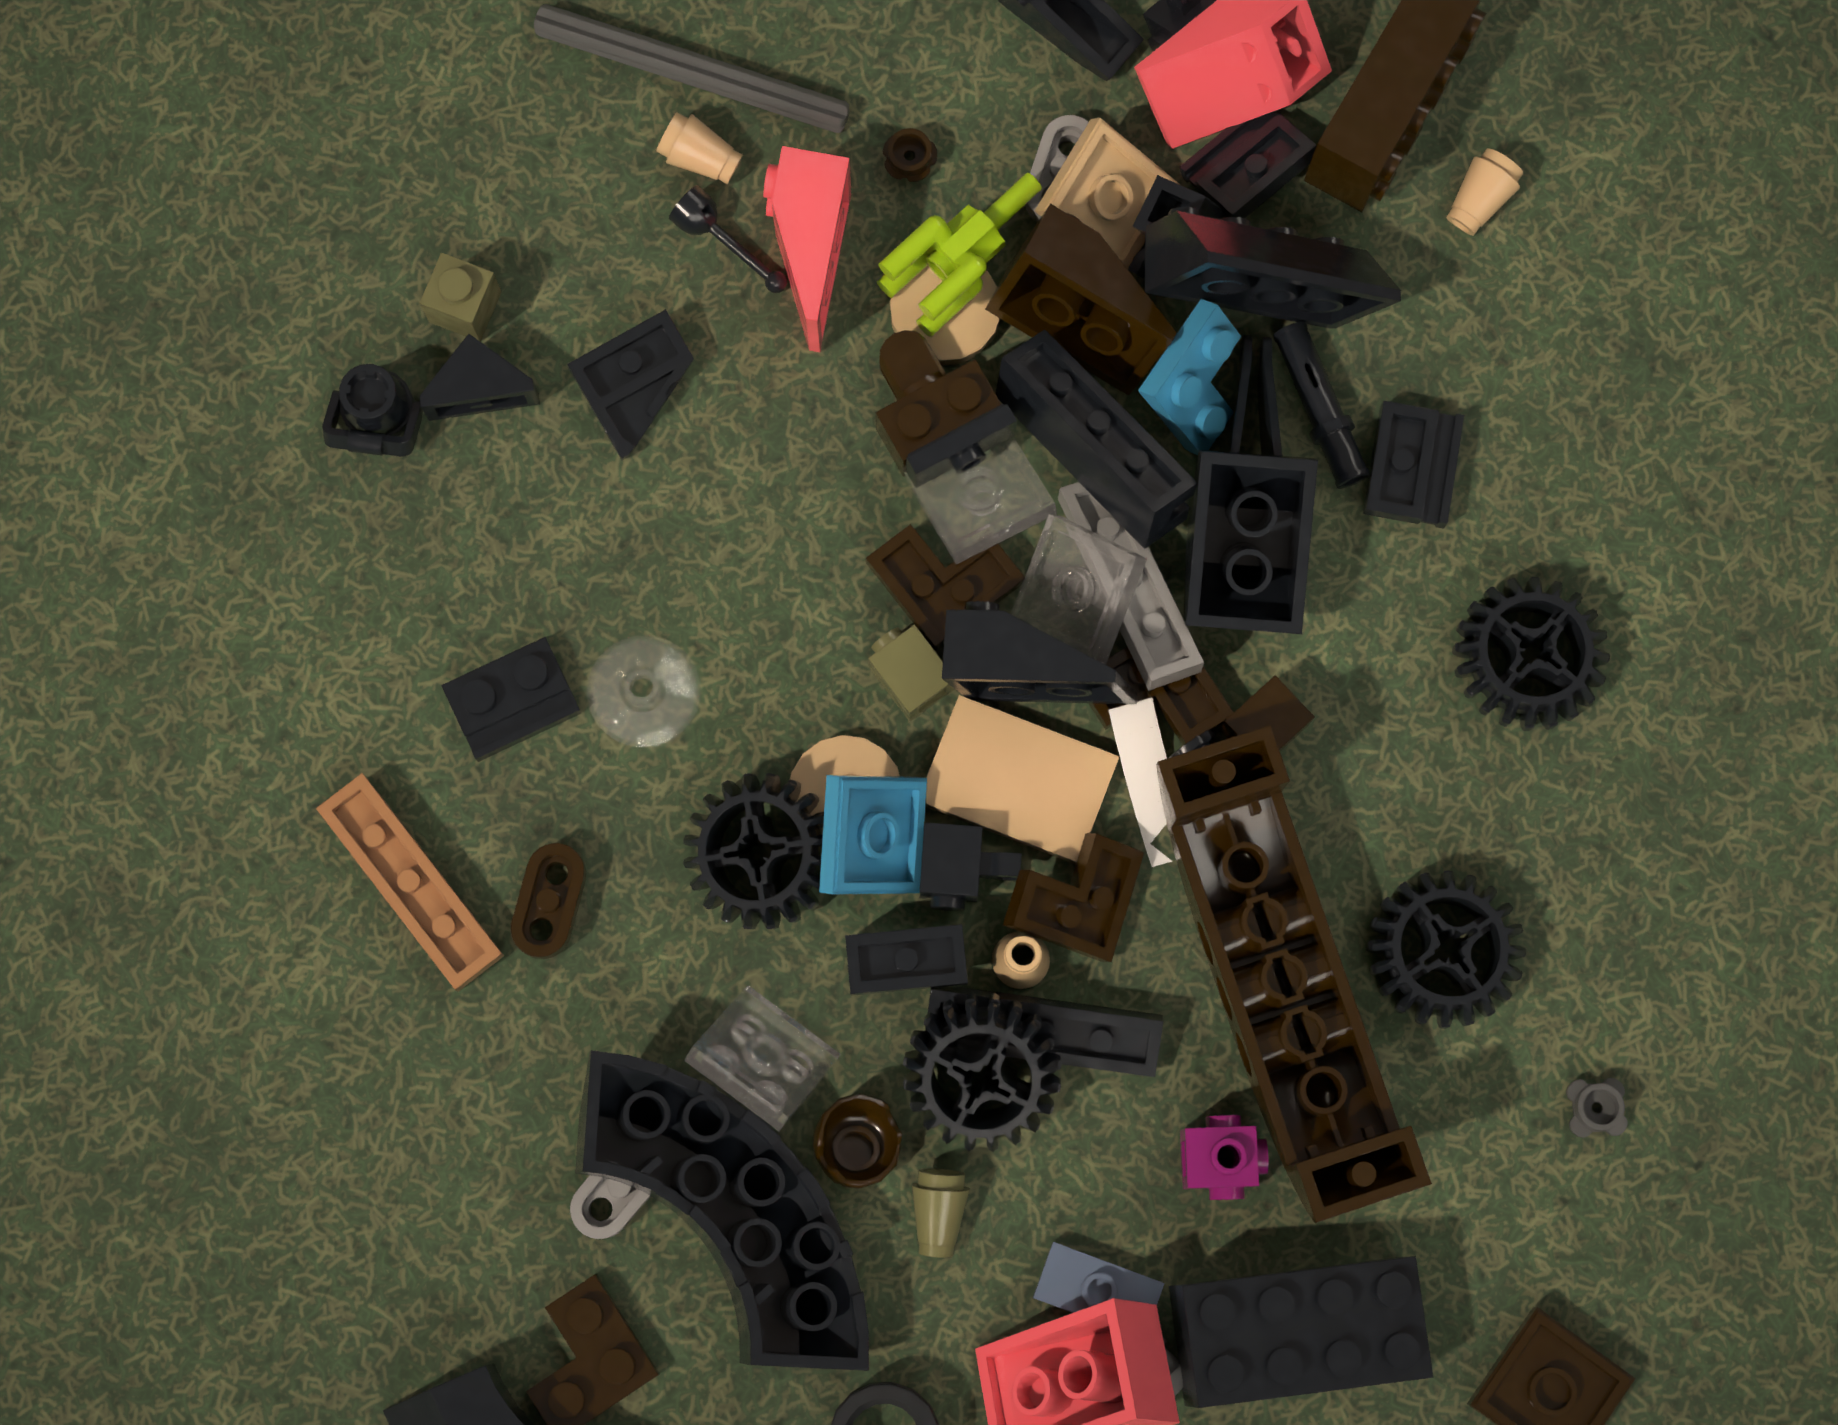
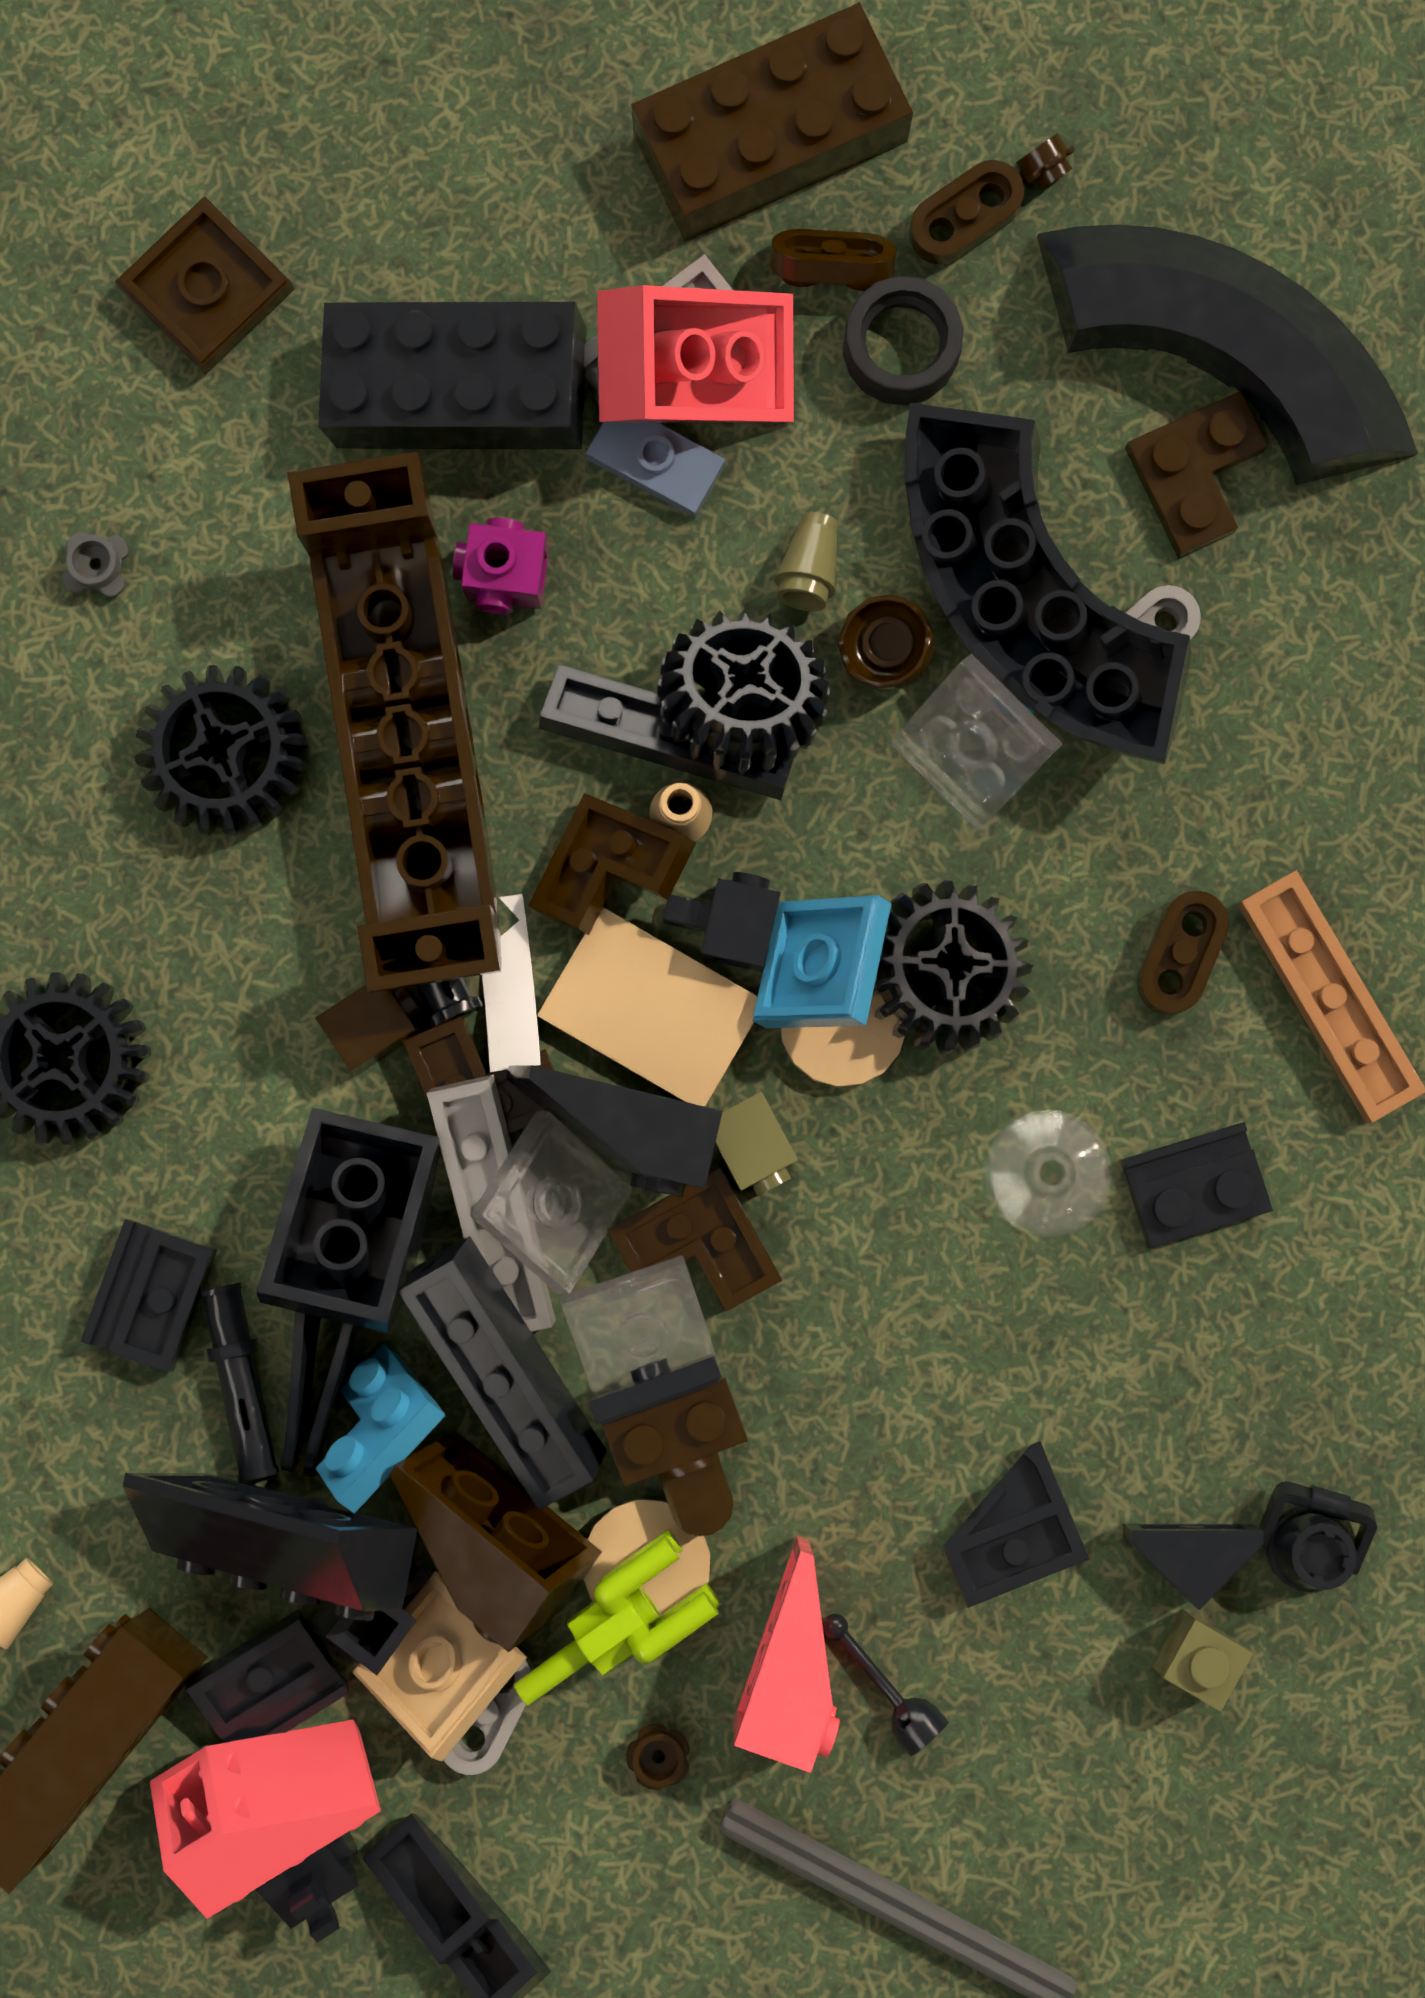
camera: 170 degrees left, 5 degrees up
(698, 149) = (903, 1801): tan cone -> none
(906, 959) = (806, 824): black panel -> none

